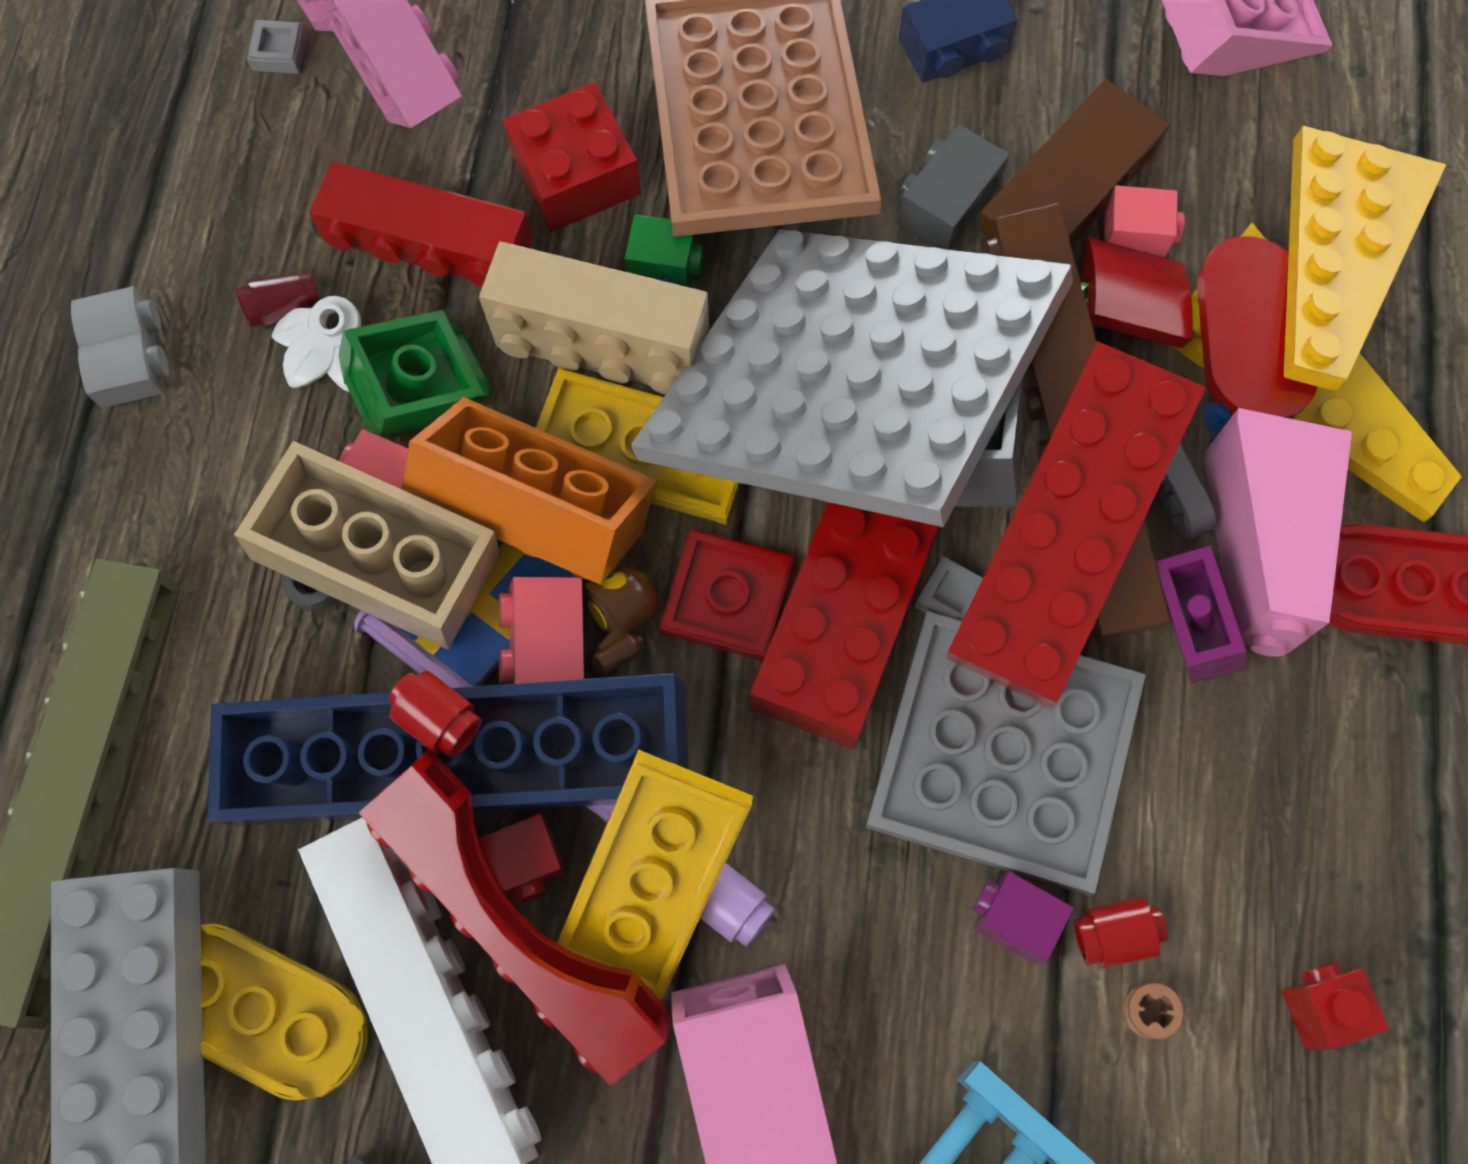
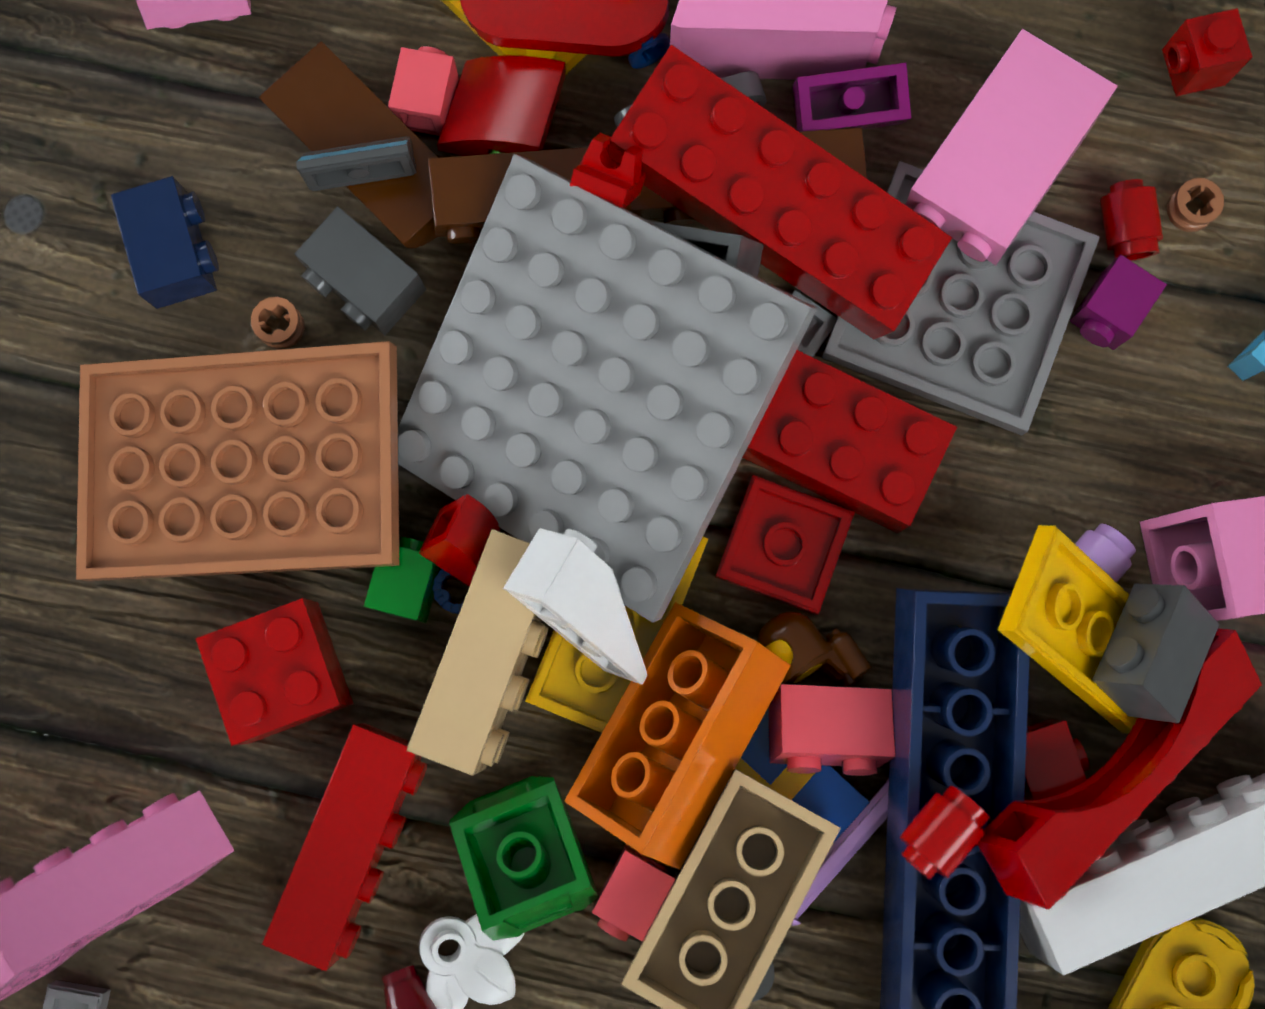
camera: 85 degrees left, 10 degrees up
(634, 947) = (1156, 652): none -> dark grey brick
(648, 365) = (578, 599): none -> white slope
(708, 277) = (459, 537): none -> red brick
(896, 115) = (276, 307): none -> nougat bush
(1051, 158) = (357, 163): none -> dark grey slope
(1060, 348) = (608, 178): none -> red tile
(1171, 772) = (1009, 147): none -> bright pink slope

